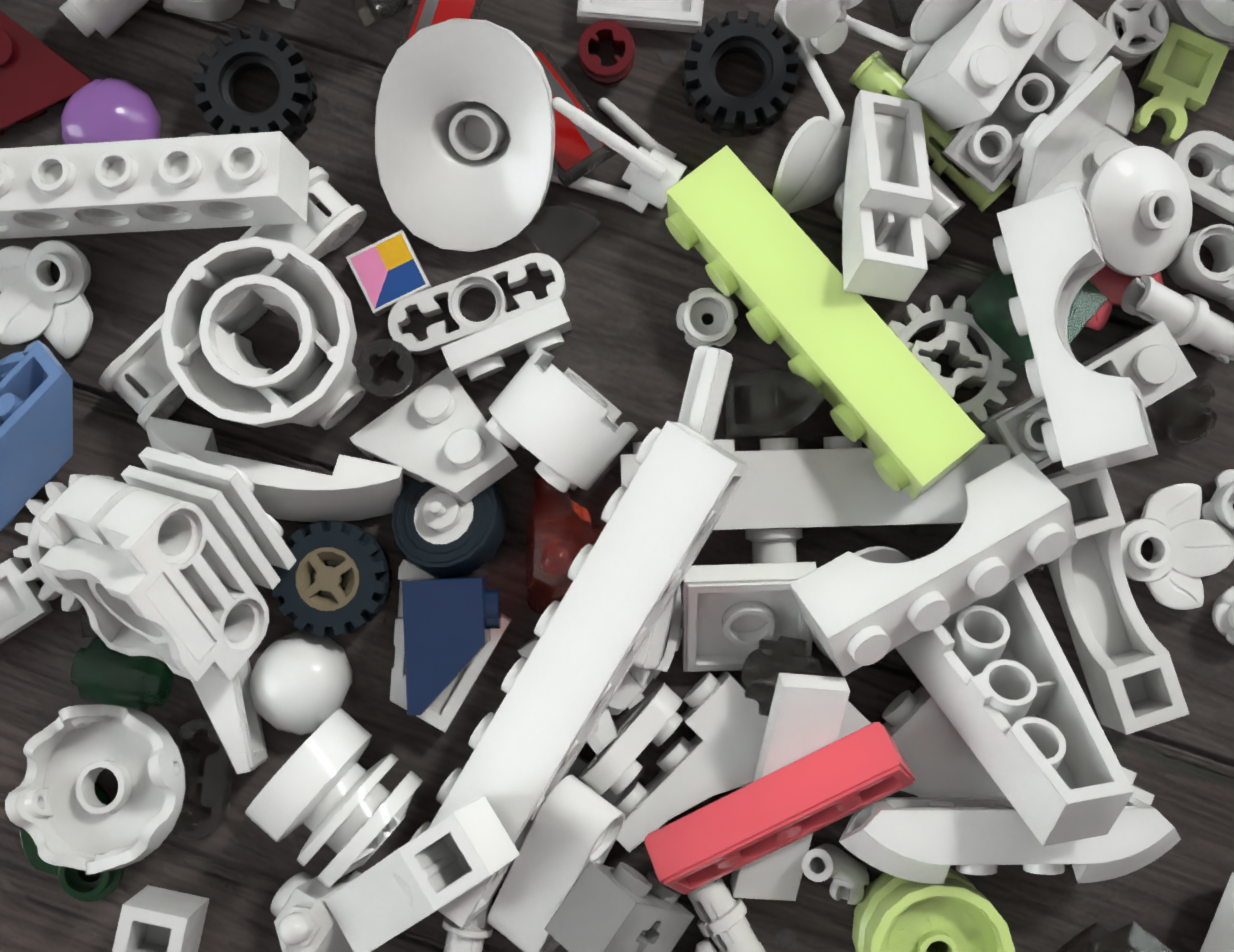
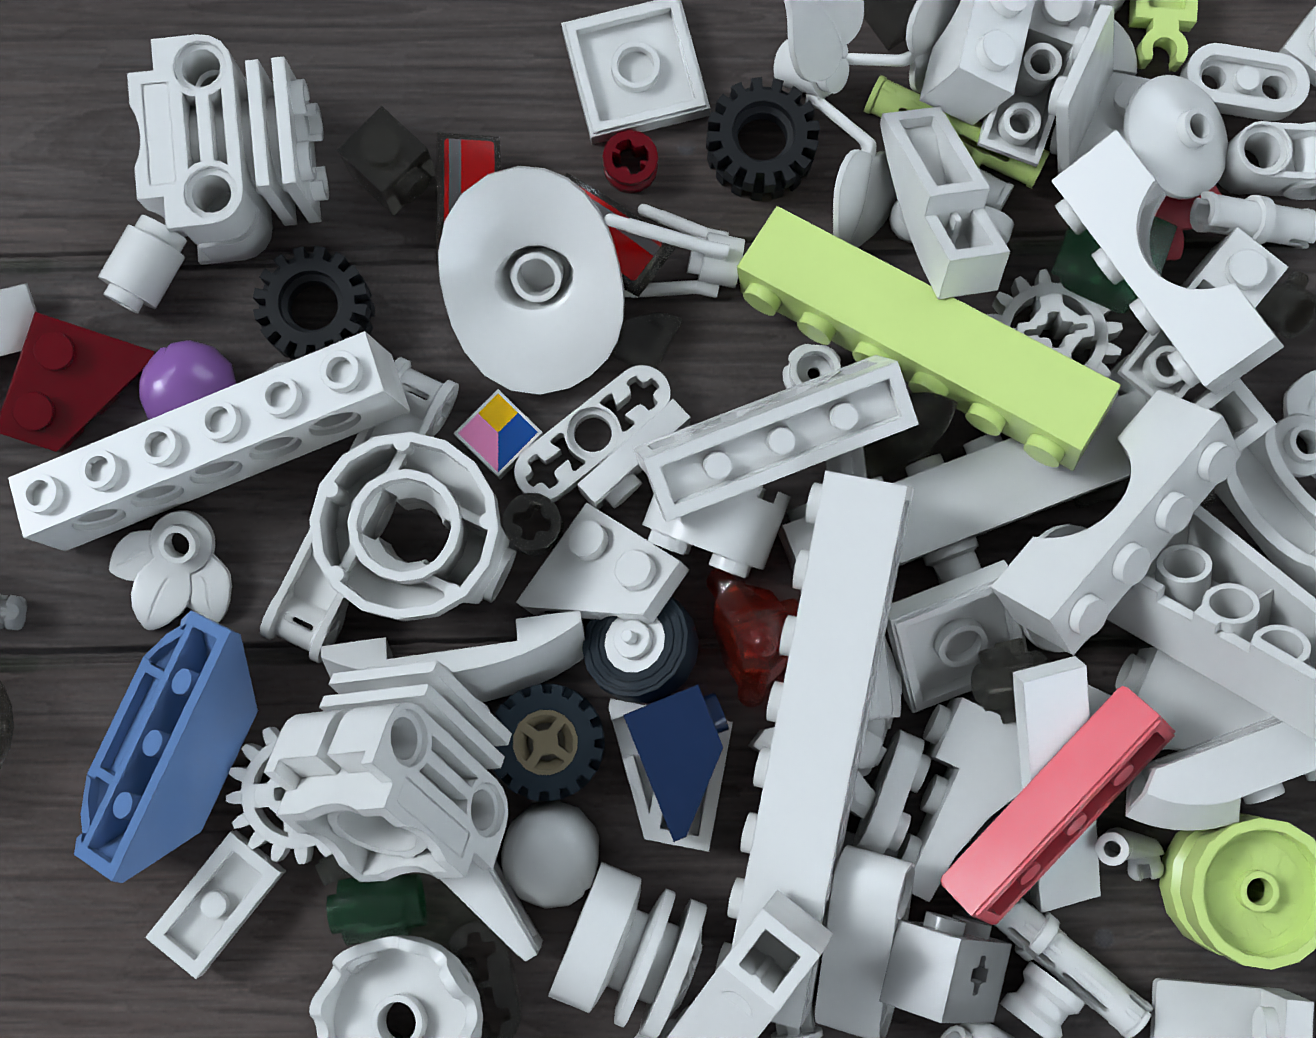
camera: 20 degrees left, 5 degrees down
(637, 369) = (776, 436): none -> white fence

